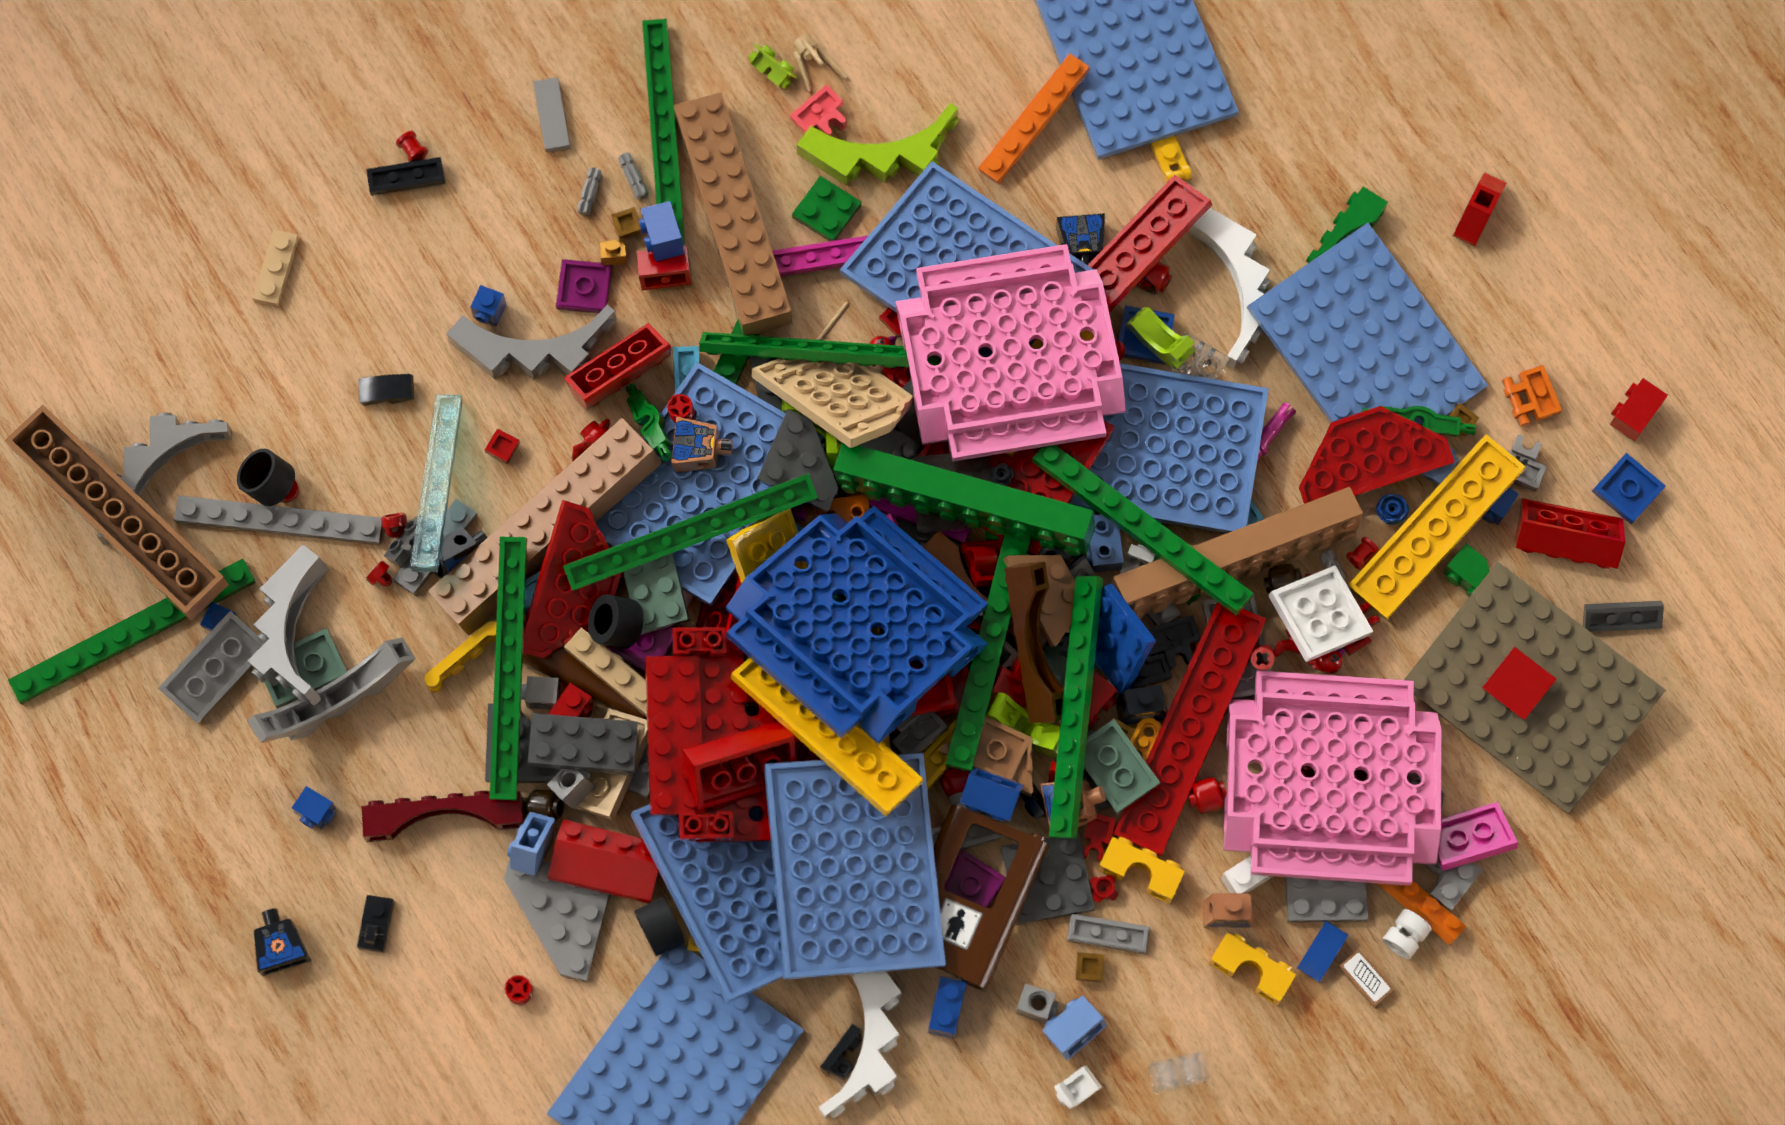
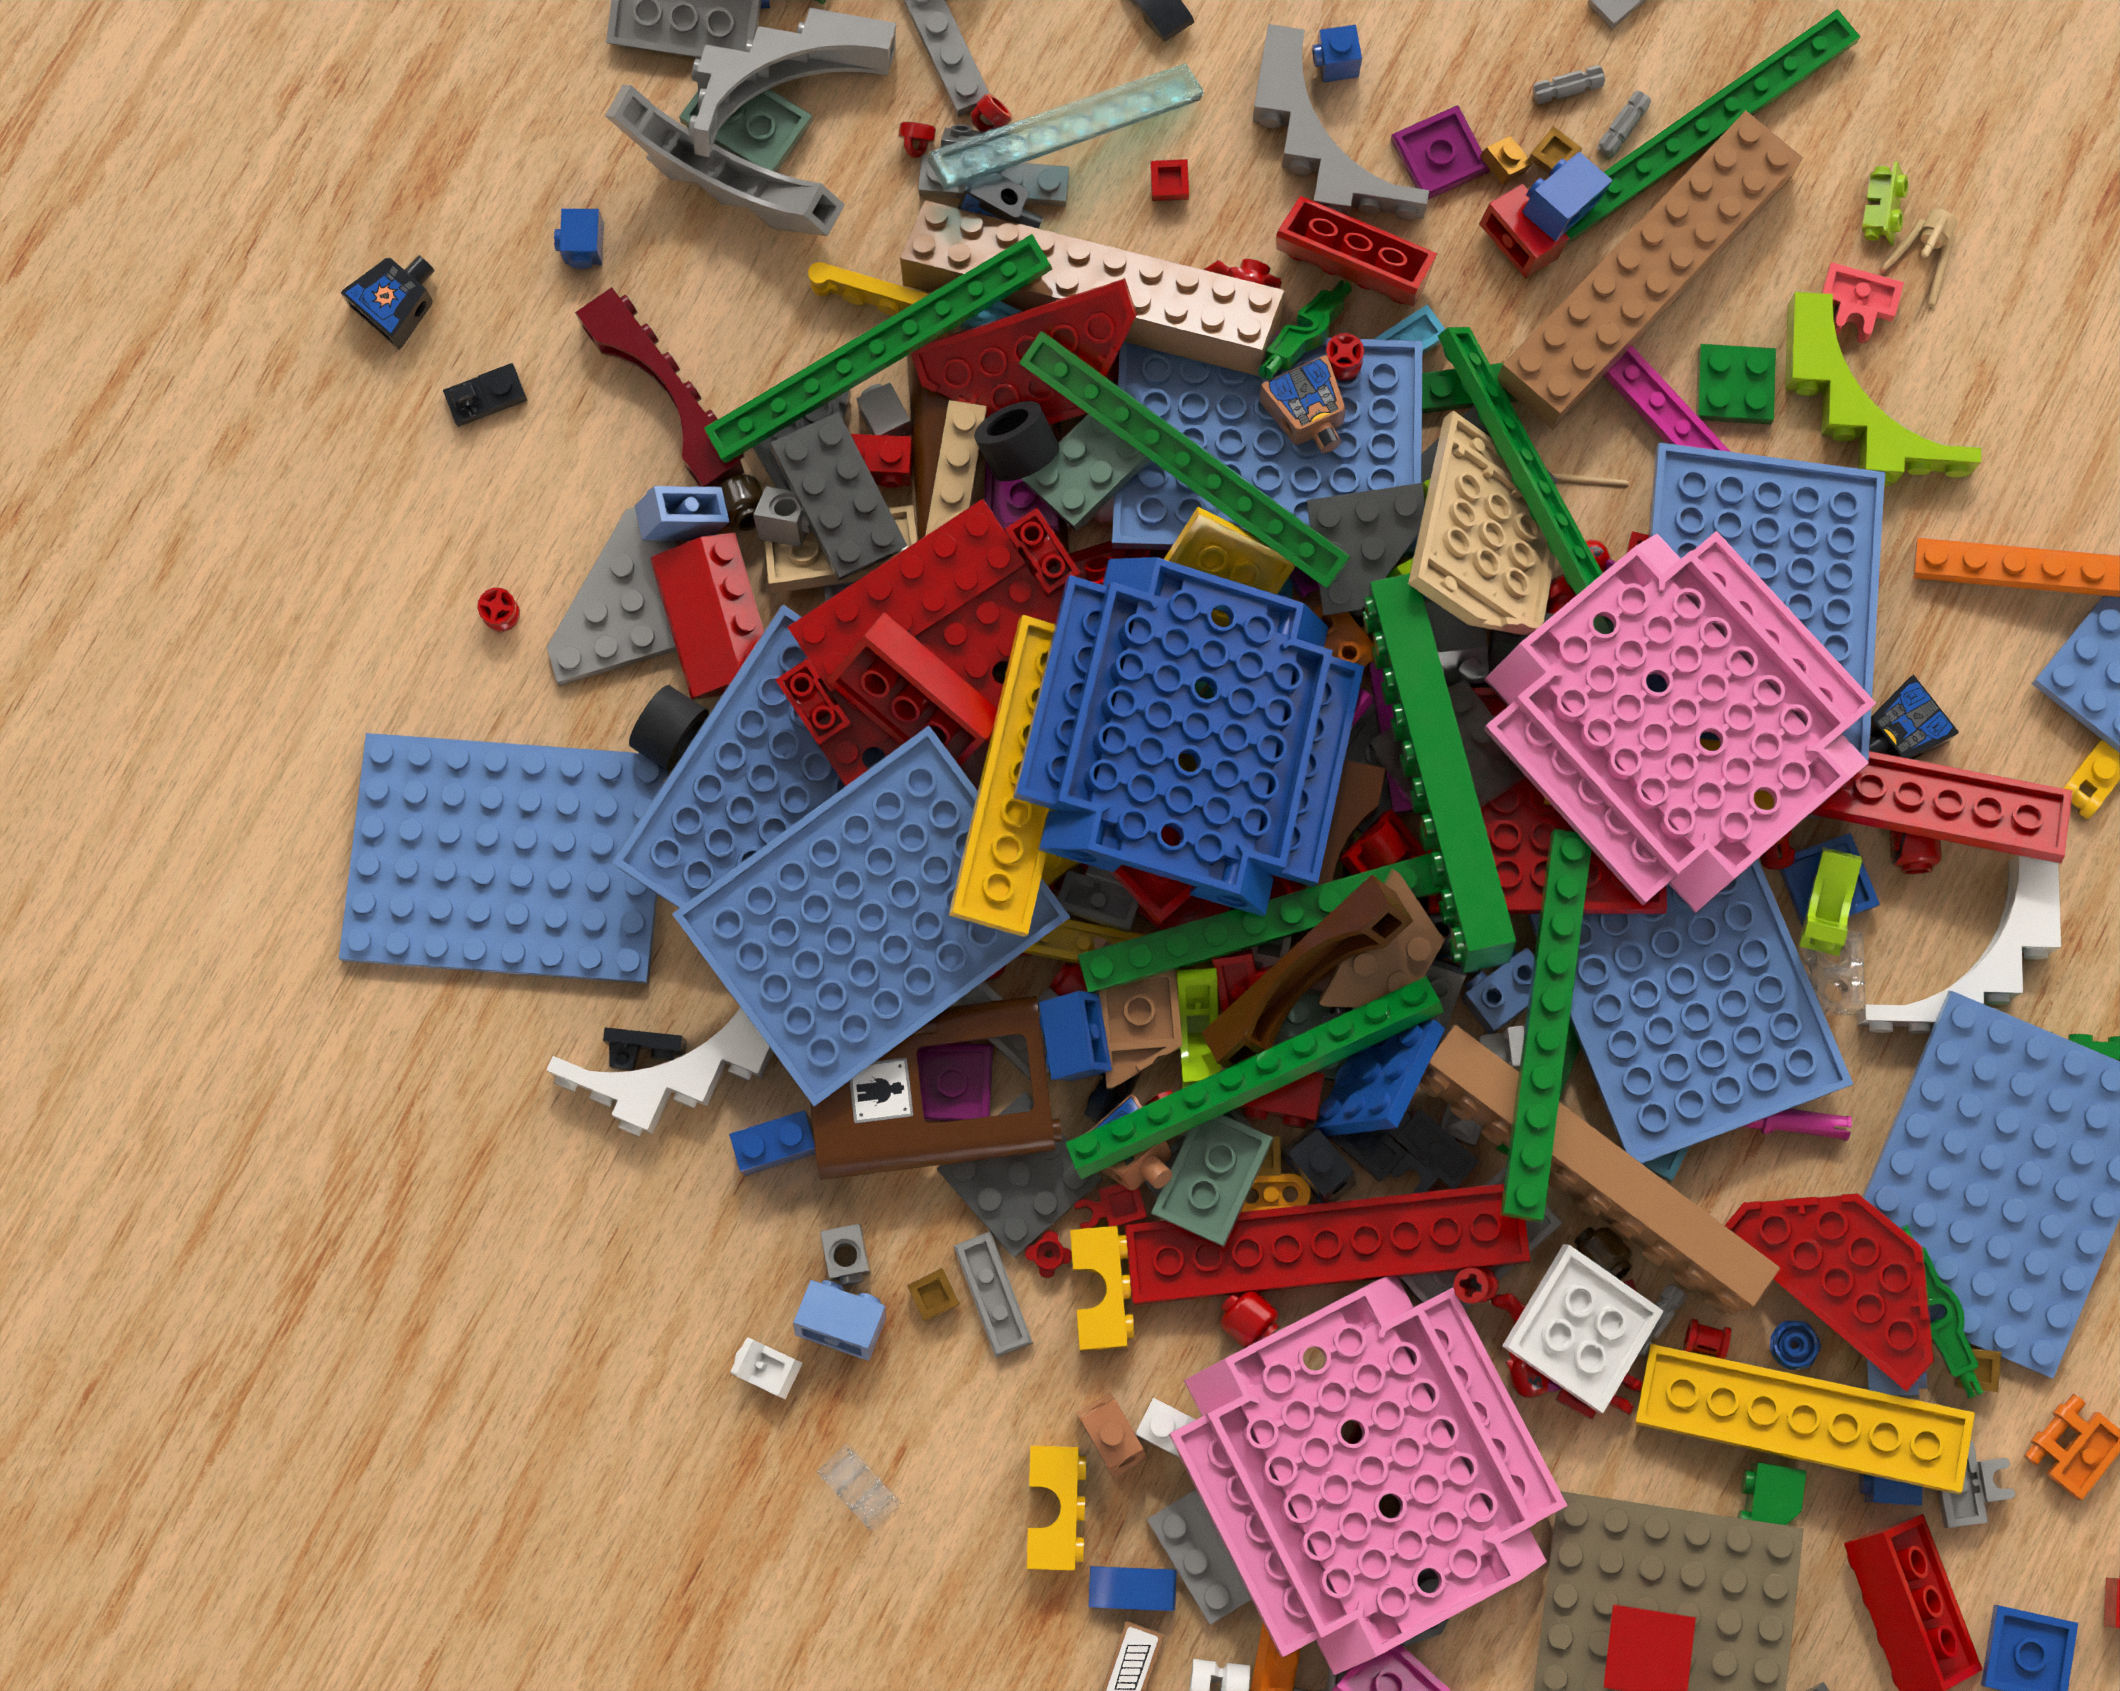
camera: 65 degrees right, 5 degrees up
(1008, 472) = (1508, 814): black plate -> none

